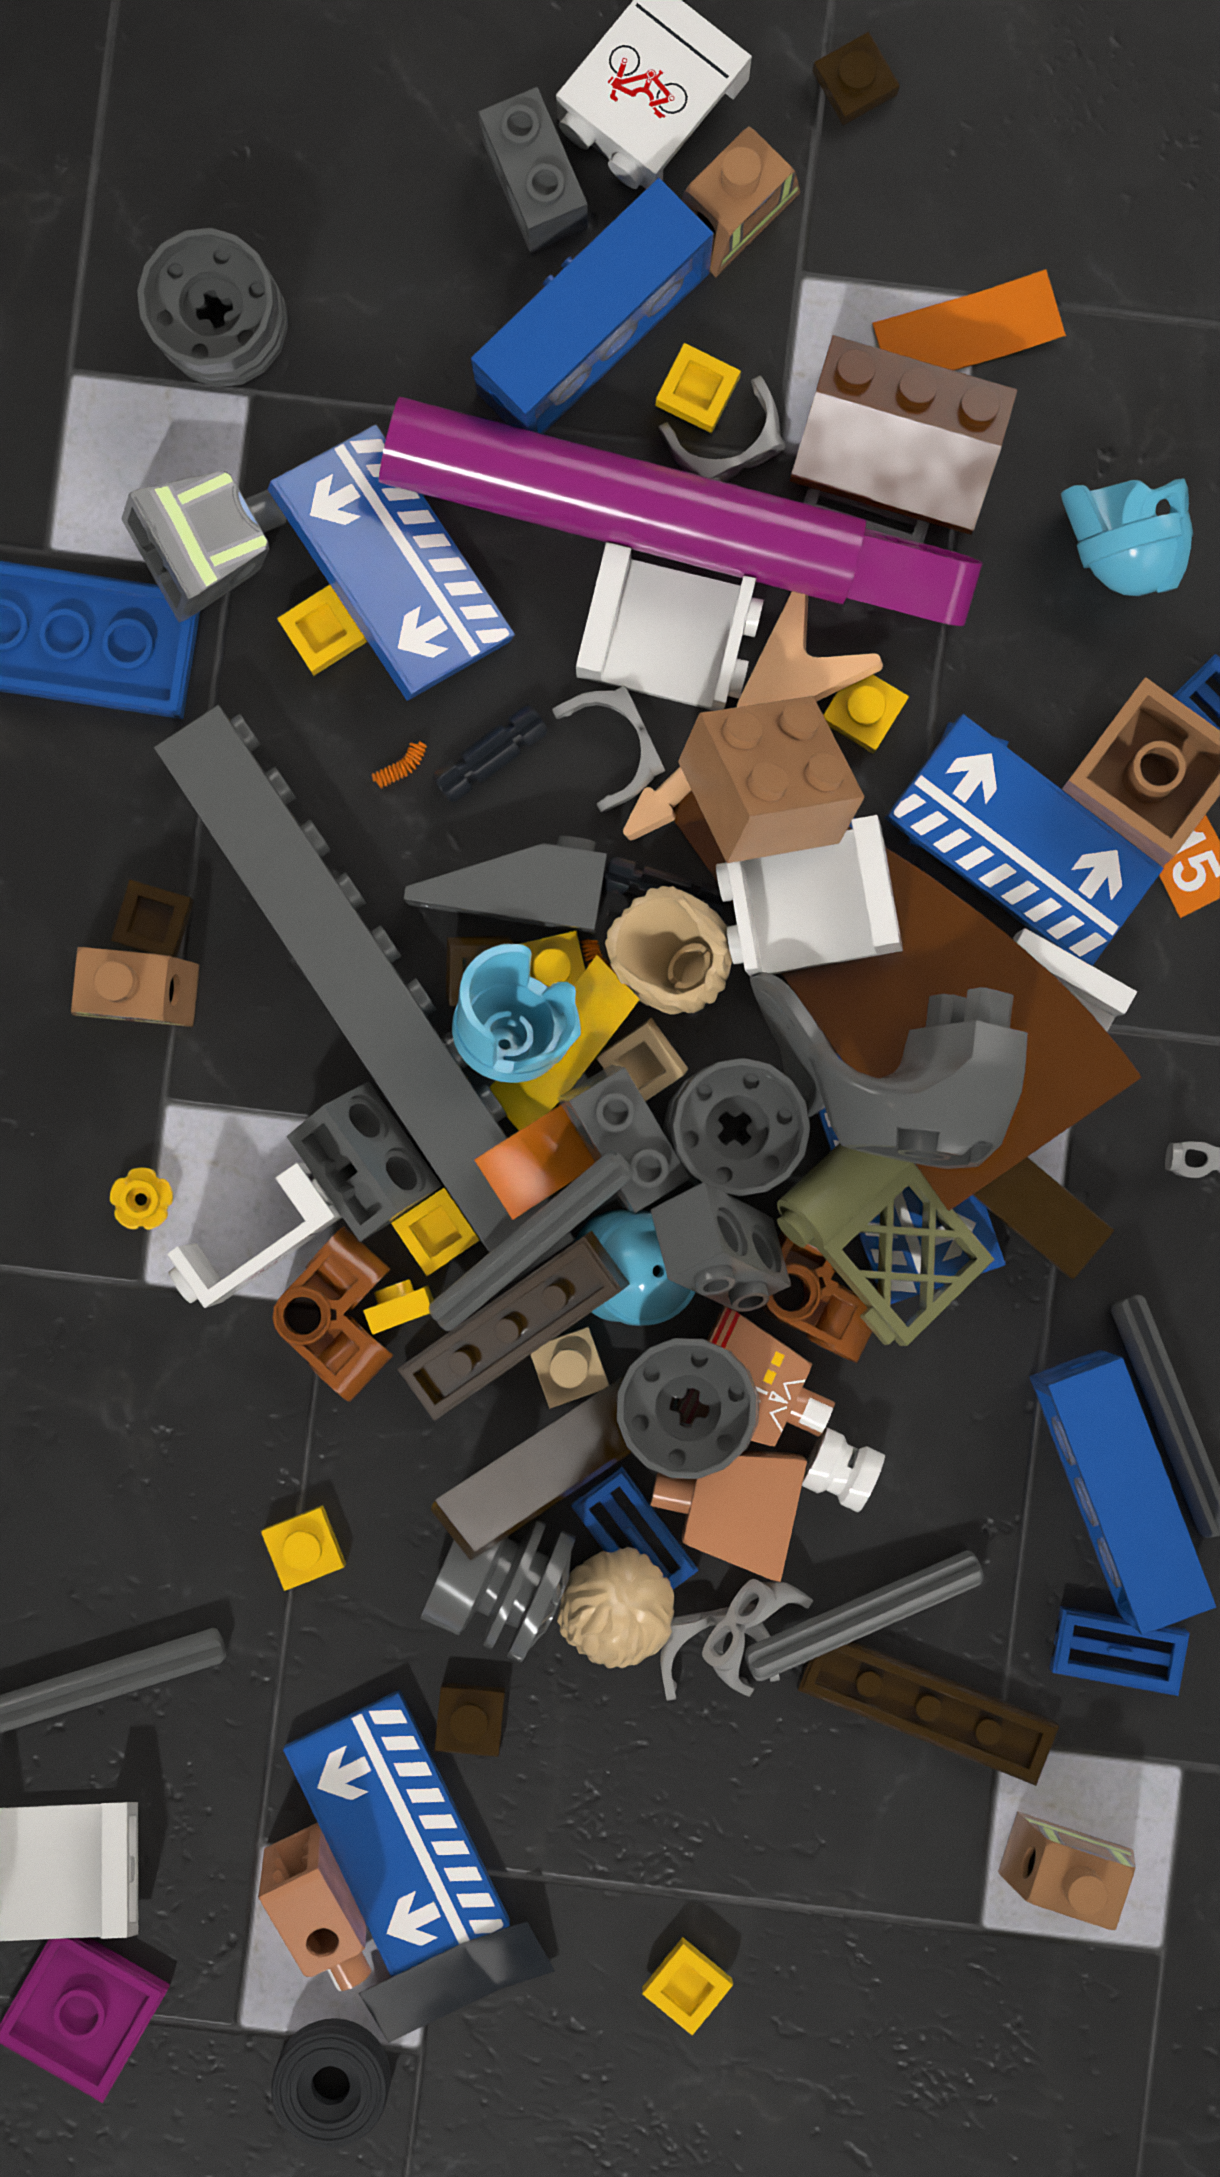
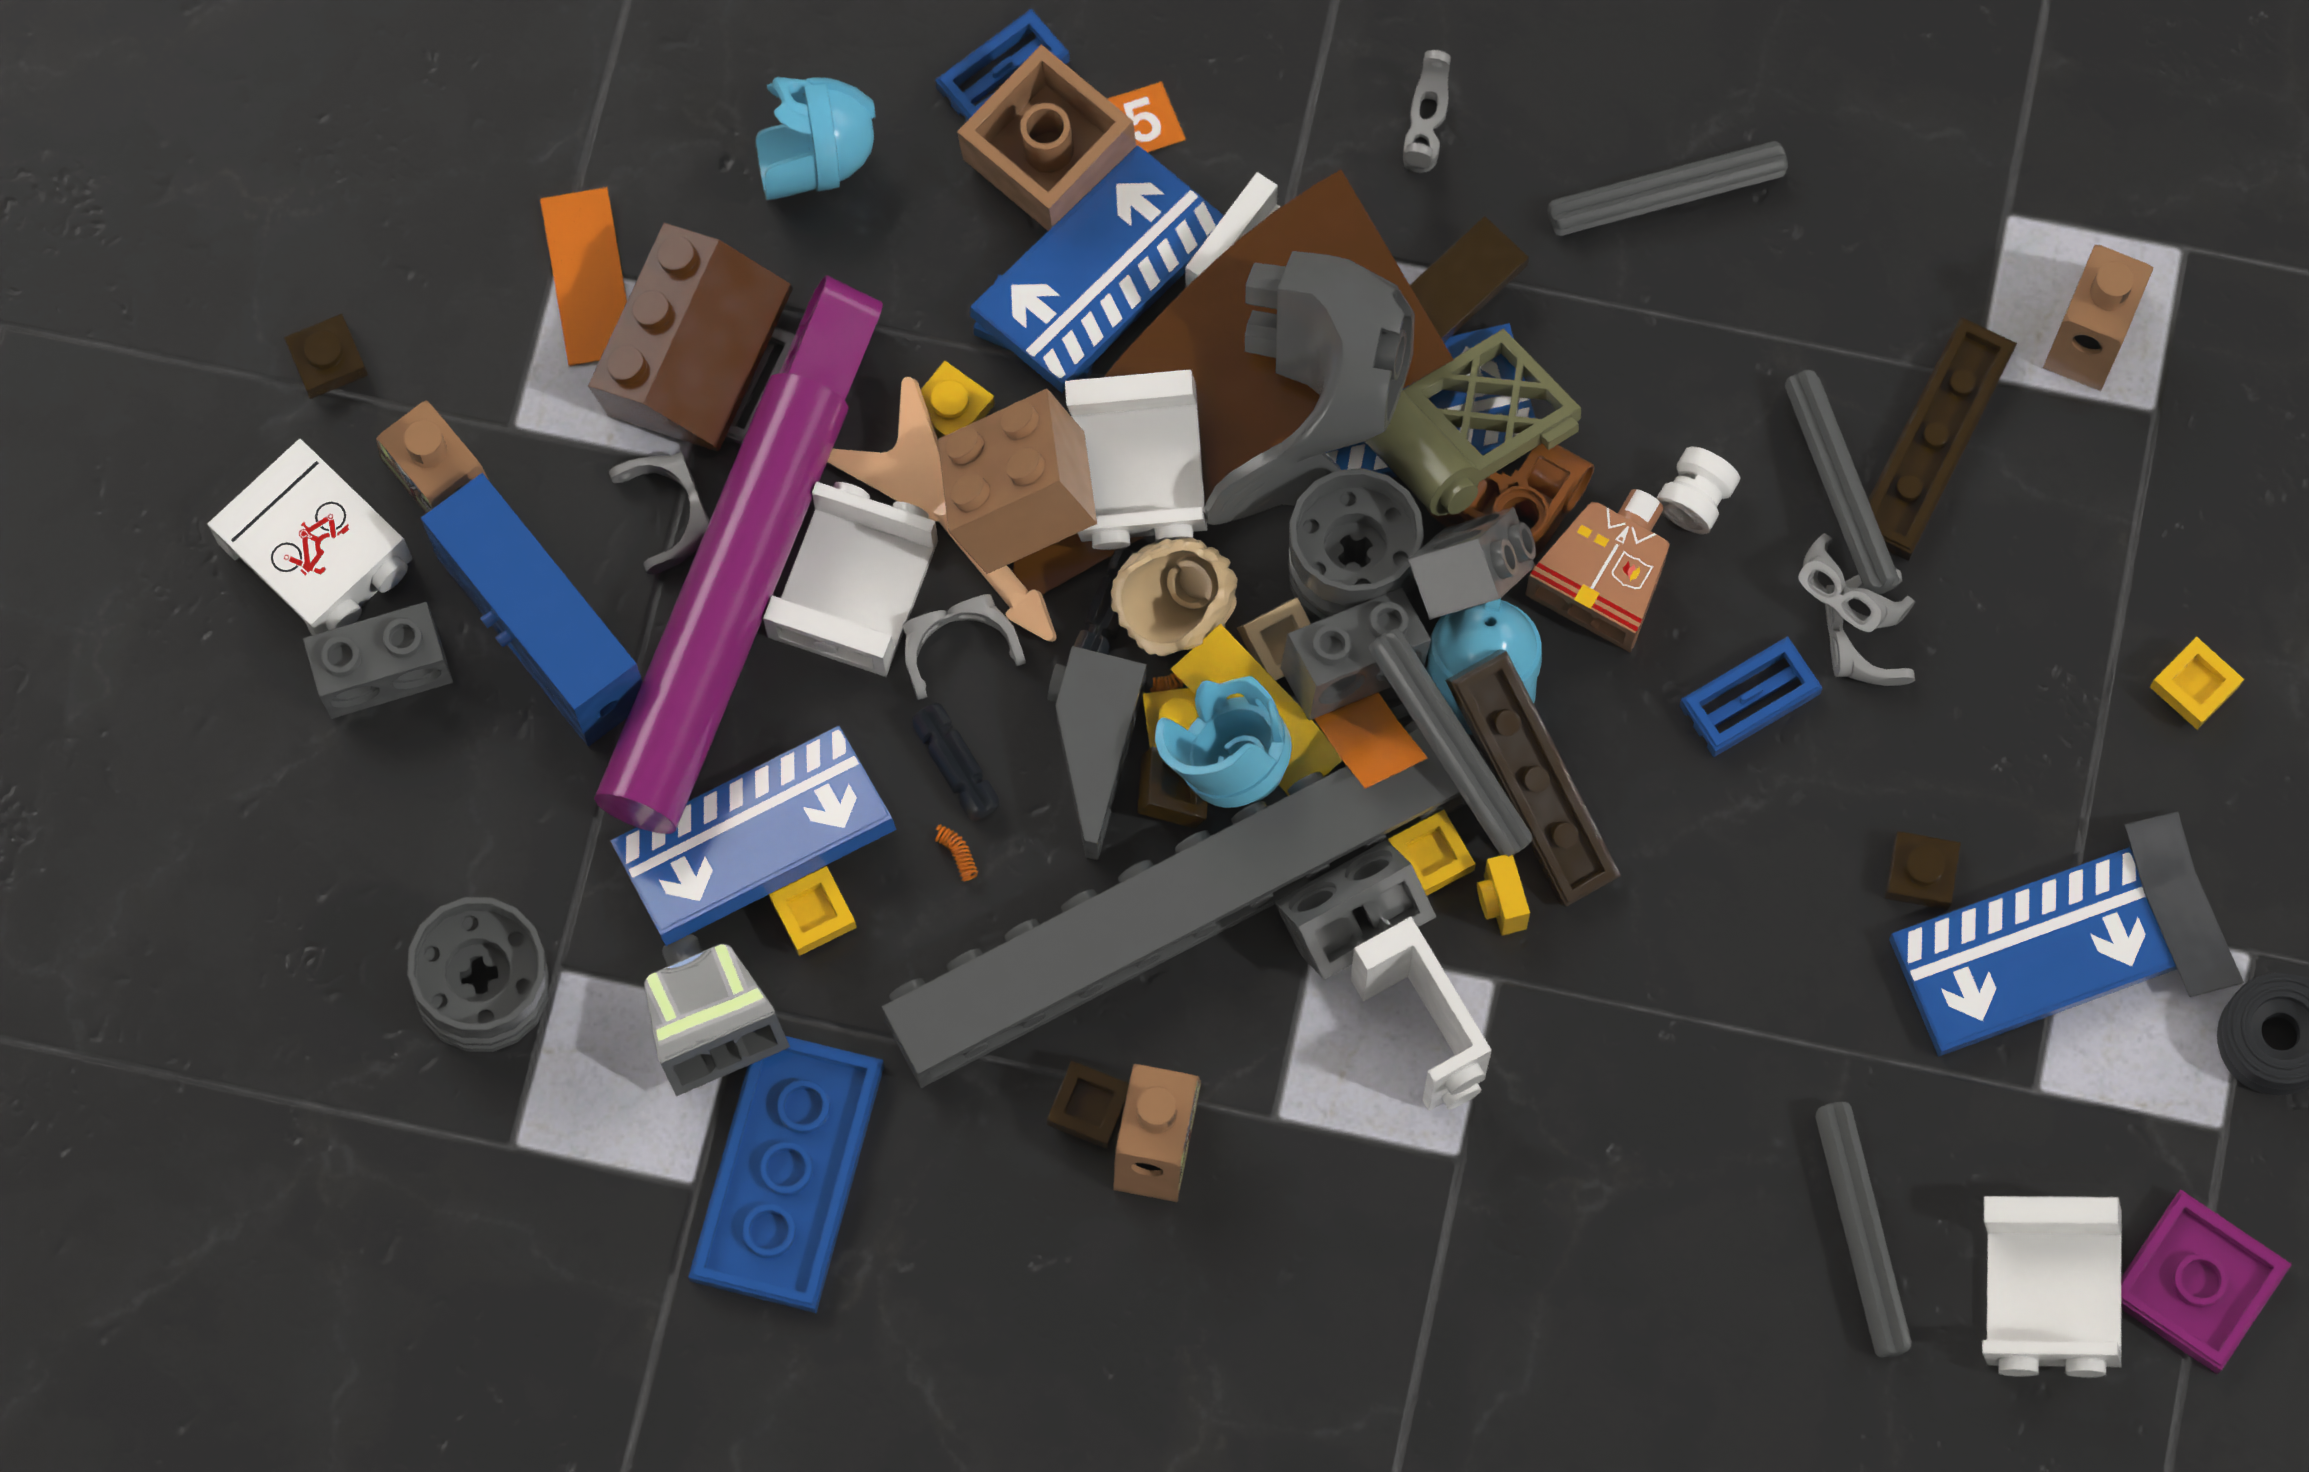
camera: 85 degrees left, 15 degrees down
(158, 1195) = (1368, 1160): yellow plate -> none
(303, 1548) = (1740, 1017): yellow plate -> none
(314, 1908) = (2098, 1024): nougat torso -> none
(339, 1347) = (1538, 957): dark orange piece -> none
(505, 1583) = (1780, 813): dark grey wheel -> none
(534, 1475) = (1672, 747): tile -> none
(569, 1367) = (1582, 740): tan plate -> none
(617, 1608) = (1820, 712): tan hair -> none
(657, 1431) = (1617, 564): dark grey wheel -> none
(698, 388) = (615, 528): yellow plate -> none
(740, 1511) = (1726, 590): nougat torso -> none
(1066, 1640) = (1878, 304): blue tile -> none
(1122, 1491) = (1734, 230): blue brick -> none

